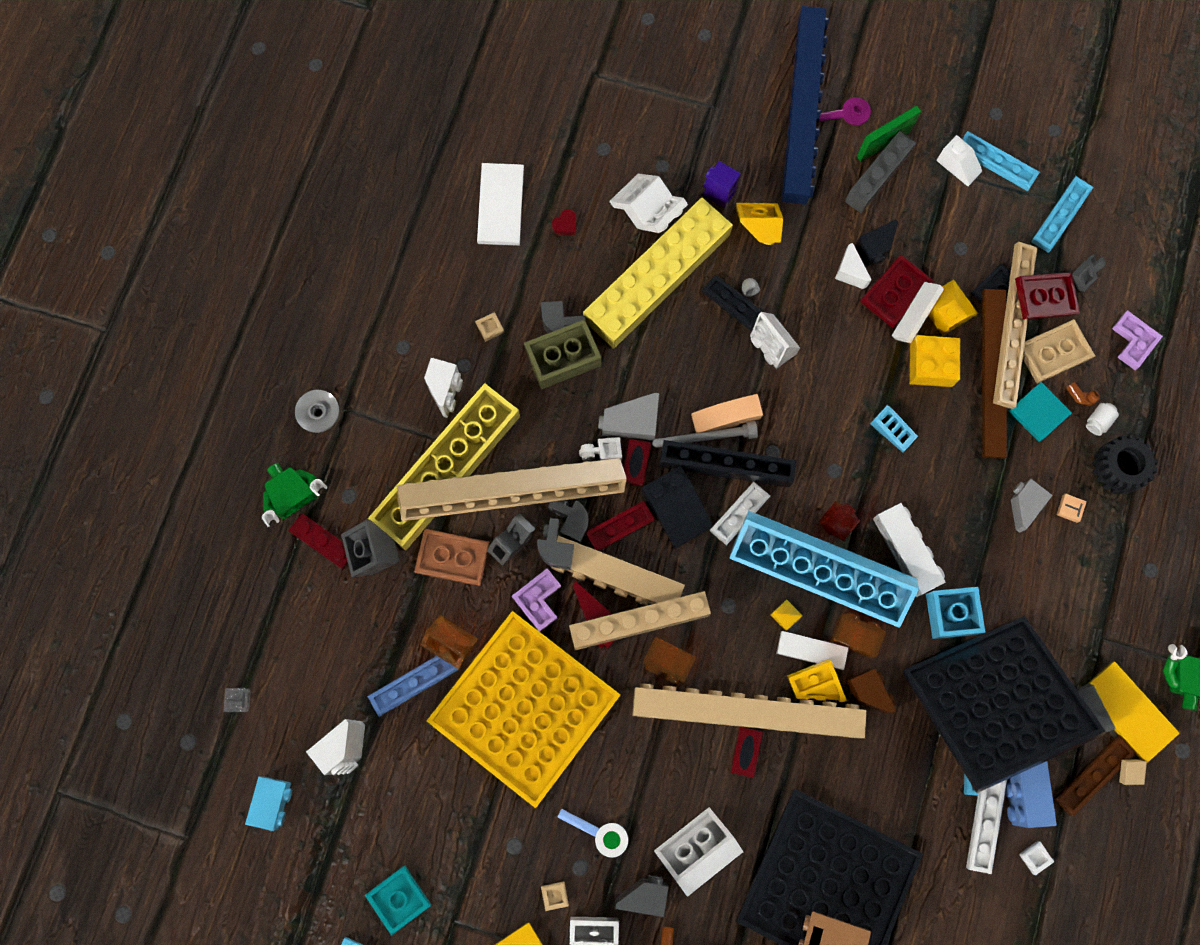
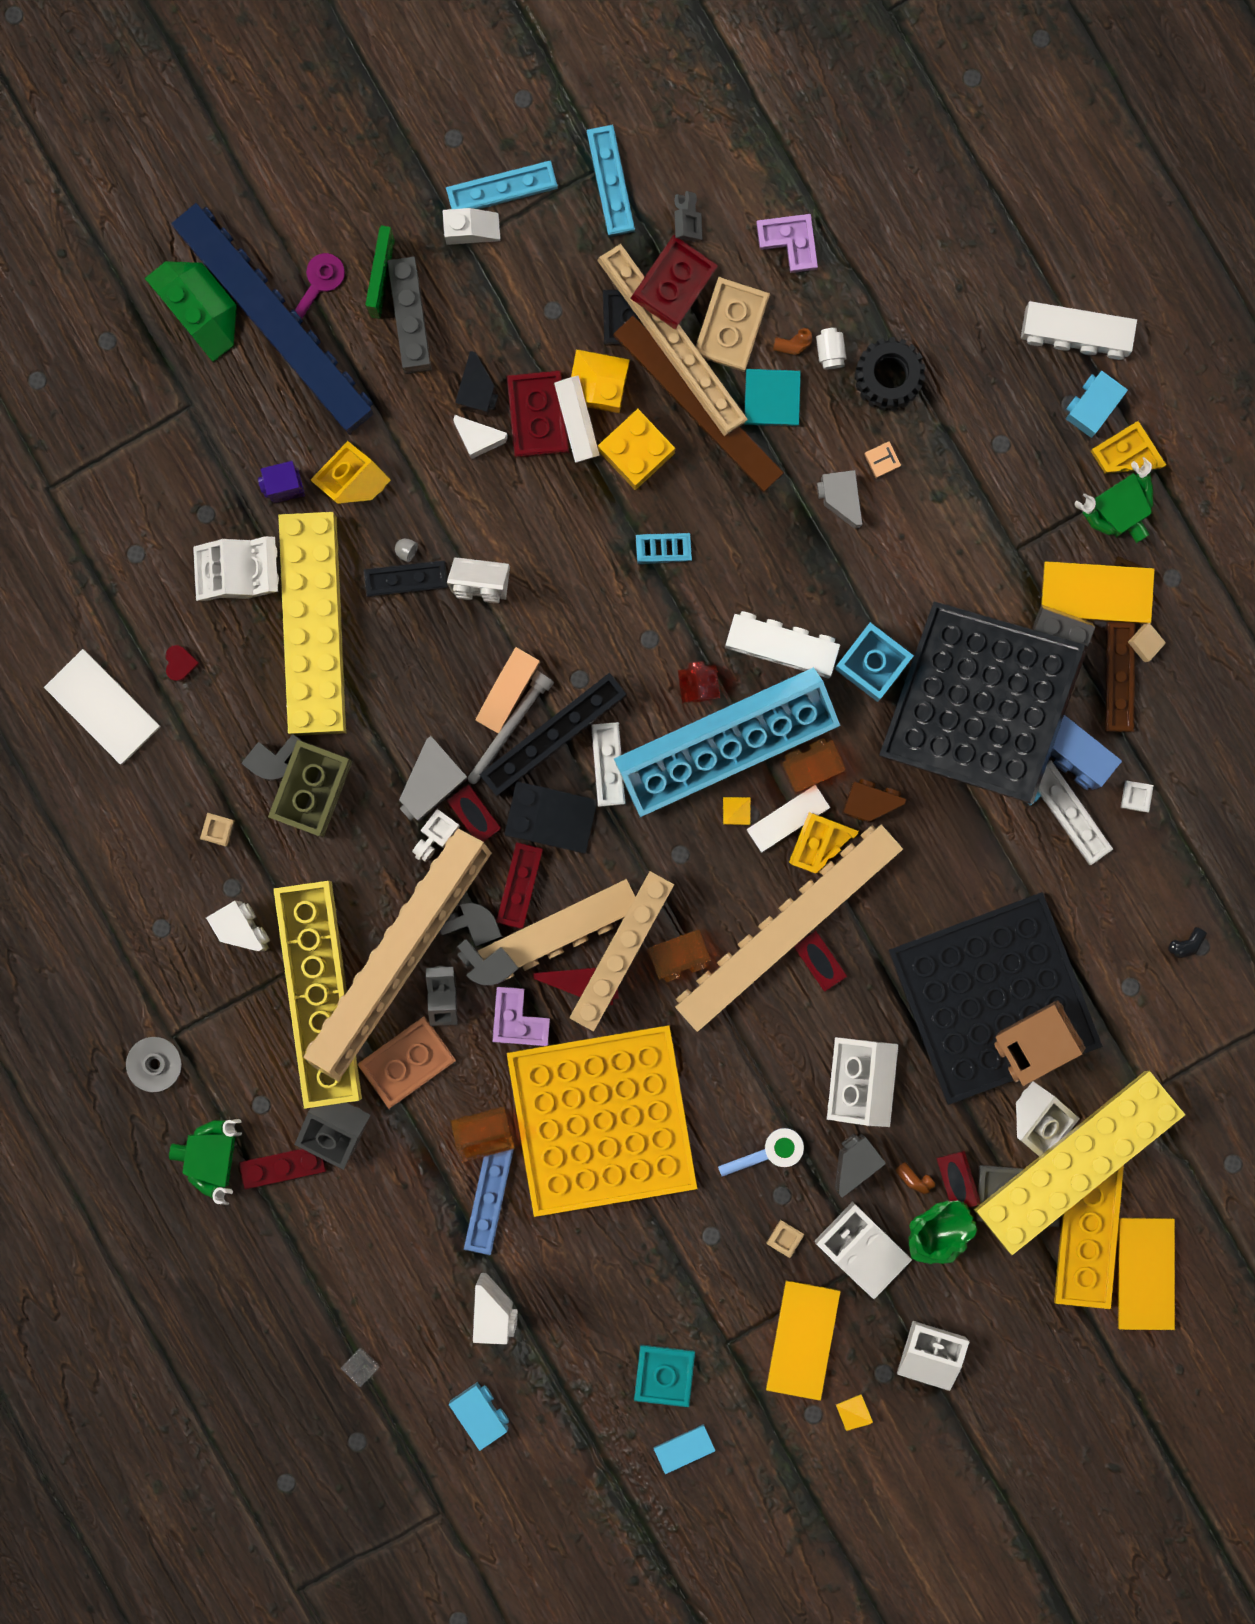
camera: 45 degrees left, 10 degrees up
(771, 61) = (197, 304): none -> green wedge

